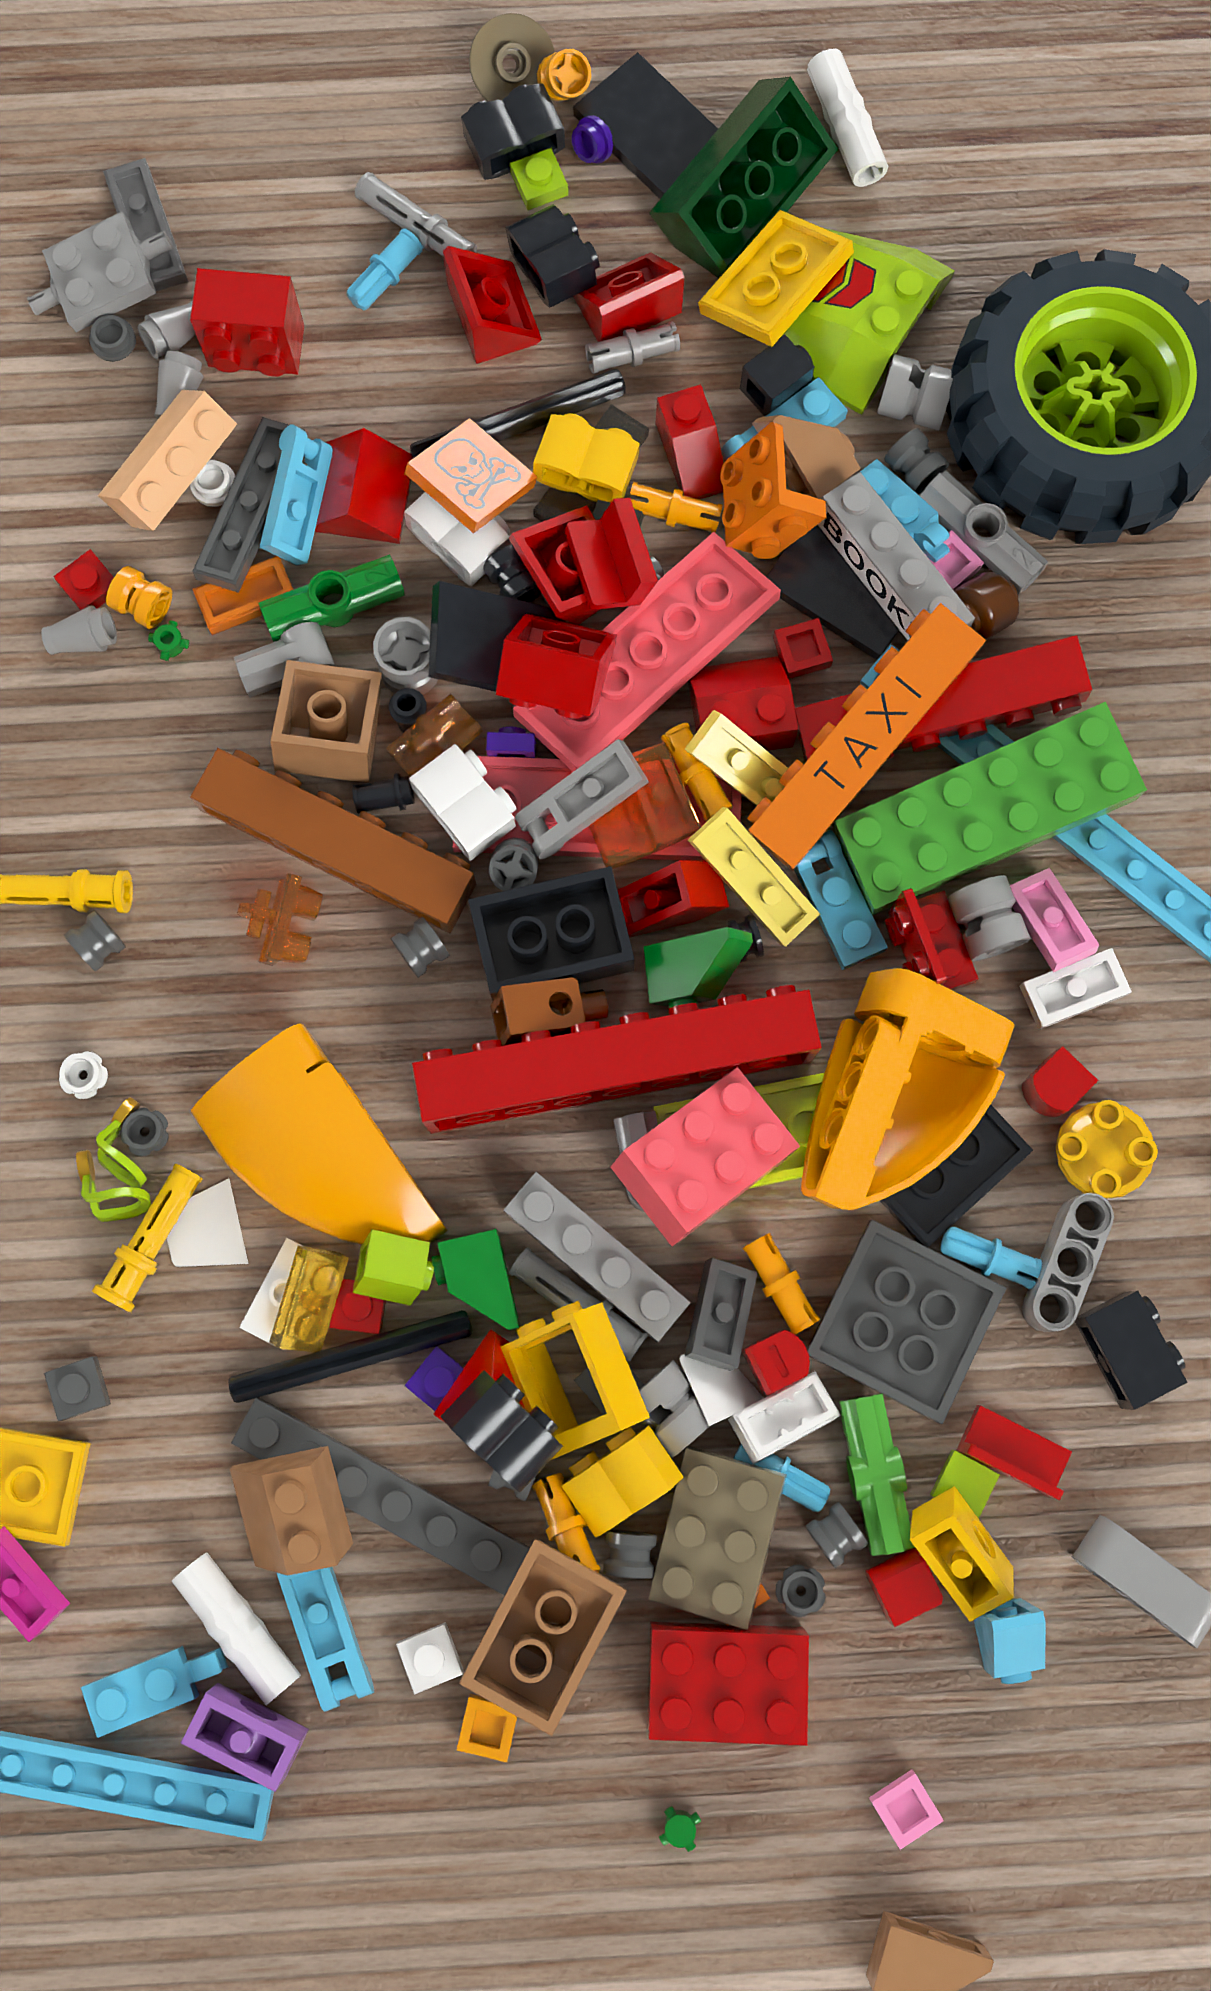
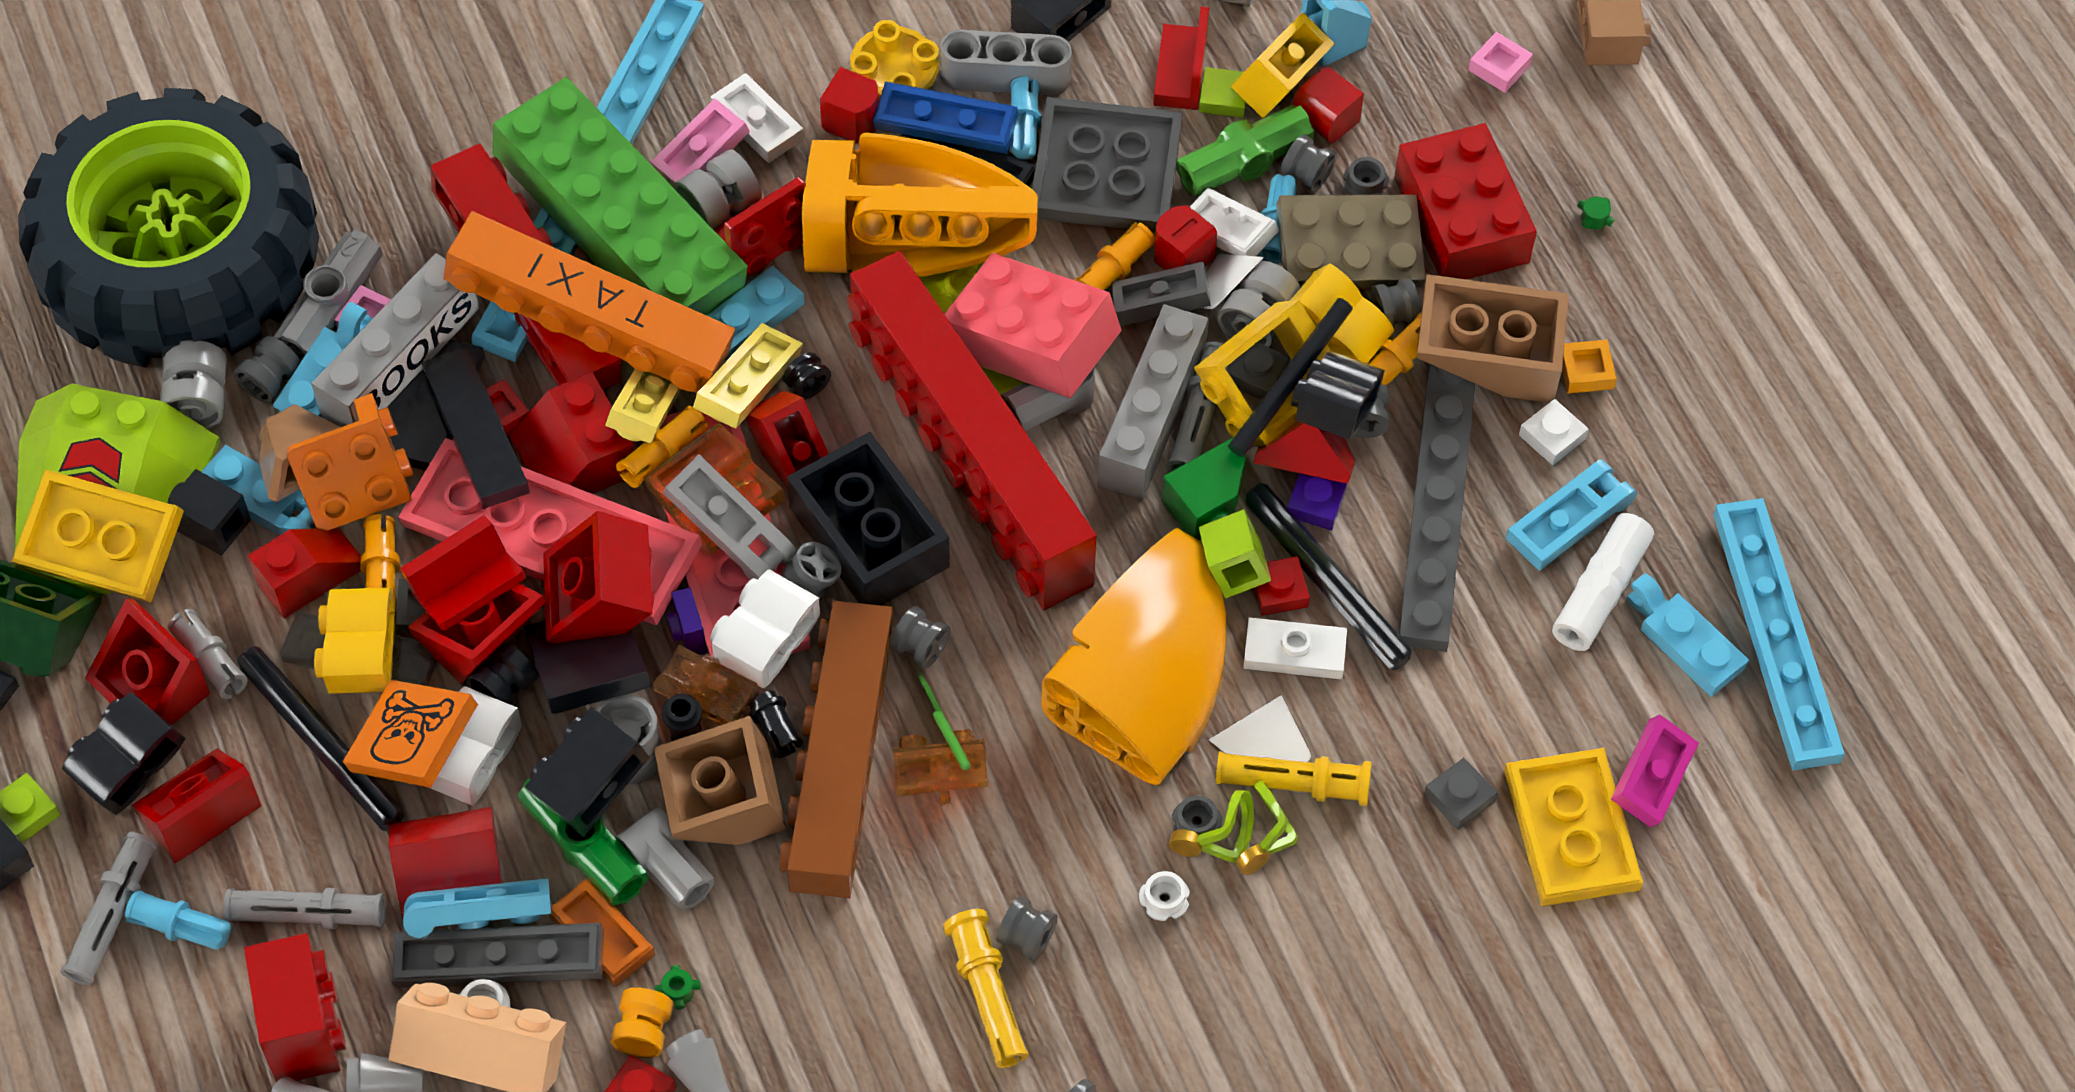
camera: 110 degrees left, 20 degrees down
(245, 1736) = (1686, 532): medium lavender brick -> none
(293, 1511) = (1486, 560): medium nougat slope -> none
(308, 1299) = (1275, 612): clear yellow plate -> none
(343, 936) = (945, 727): none -> bright green piece
(349, 381) = (320, 908): none -> light grey pin
(356, 593) = (586, 770): none -> black brick
(527, 1008) = (948, 493): dark orange torso -> none
(549, 1394) = (1290, 377): none -> black bar
(693, 966) = (855, 397): green slope -> none
(776, 613) = (475, 428): none -> black tile
(991, 602) = (396, 266): reddish brown head -> none
(1009, 1172) = (946, 117): none -> blue tile

